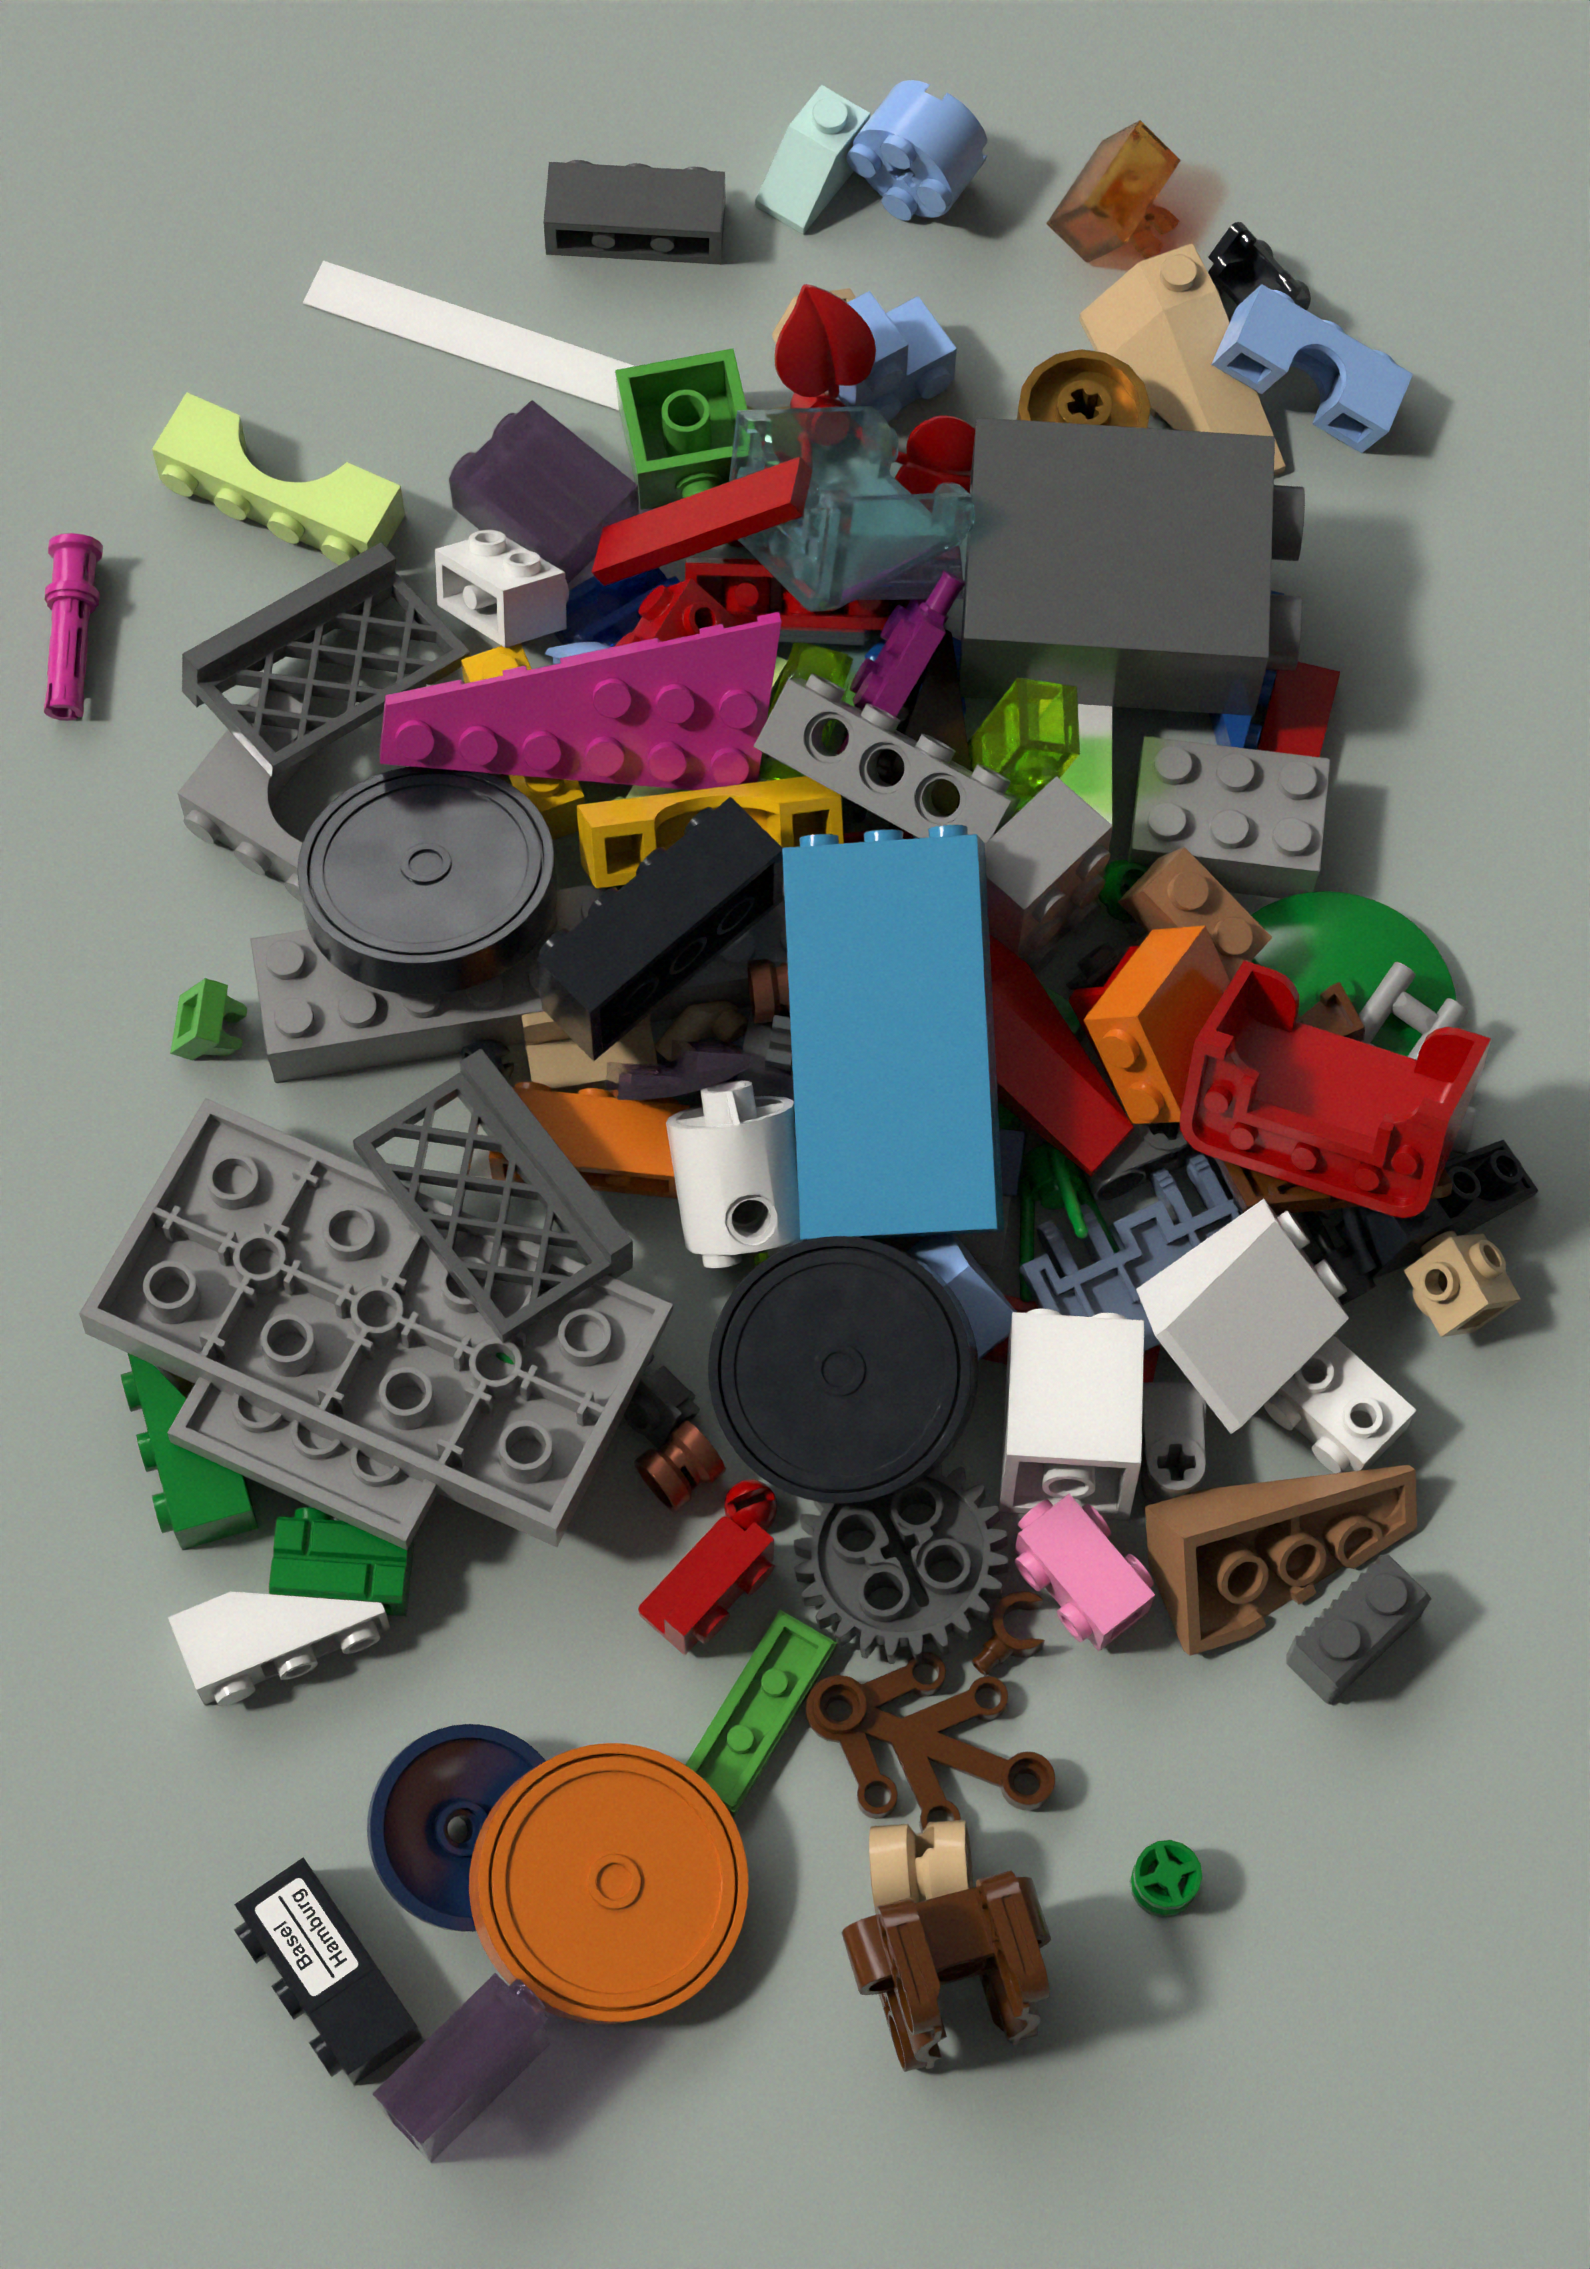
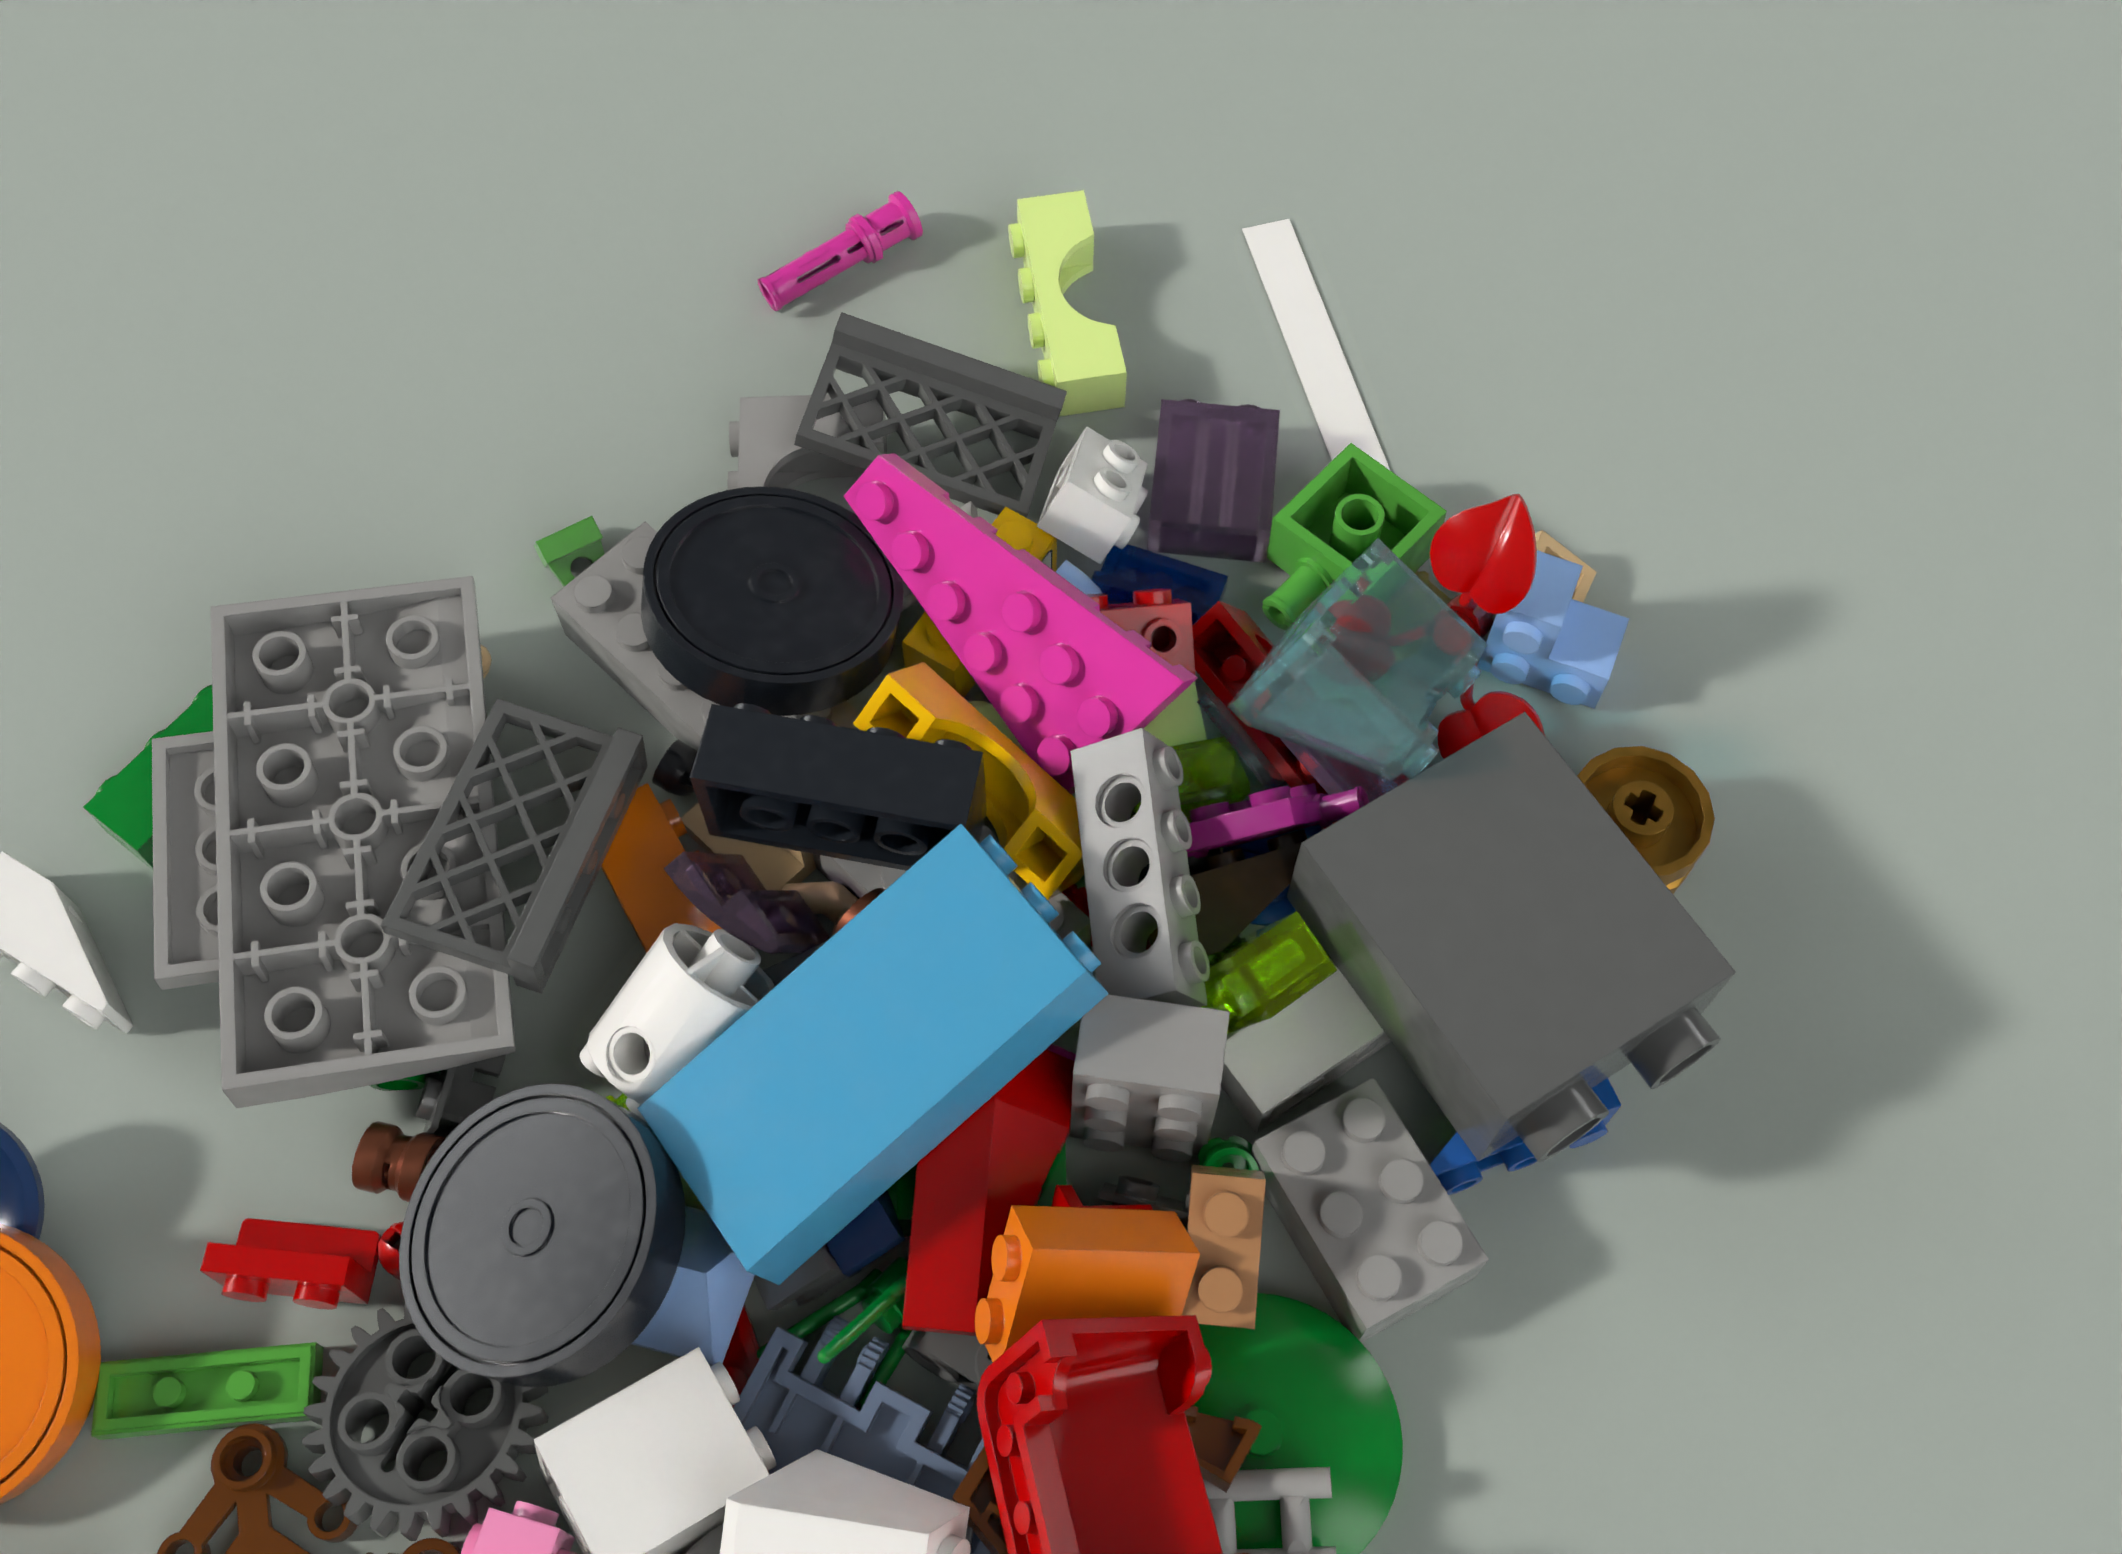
camera: 55 degrees right, 5 degrees down
(338, 1561) = (121, 944): green brick -> none
(634, 212) = (1517, 381): dark grey brick -> none
(702, 521) = (1262, 584): red tile -> none
(811, 160) = (1685, 470): light aqua slope -> none
(918, 151) = (1760, 532): light blue brick -> none
(1116, 196) = (1872, 712): clear orange brick -> none
(1168, 328) = (1773, 866): tan wedge -> none
(1246, 263) = (1901, 876): black piece -> none
(1299, 710) = (1525, 1205): red tile -> none
(1355, 384) = (1887, 1027): light blue arch -> none

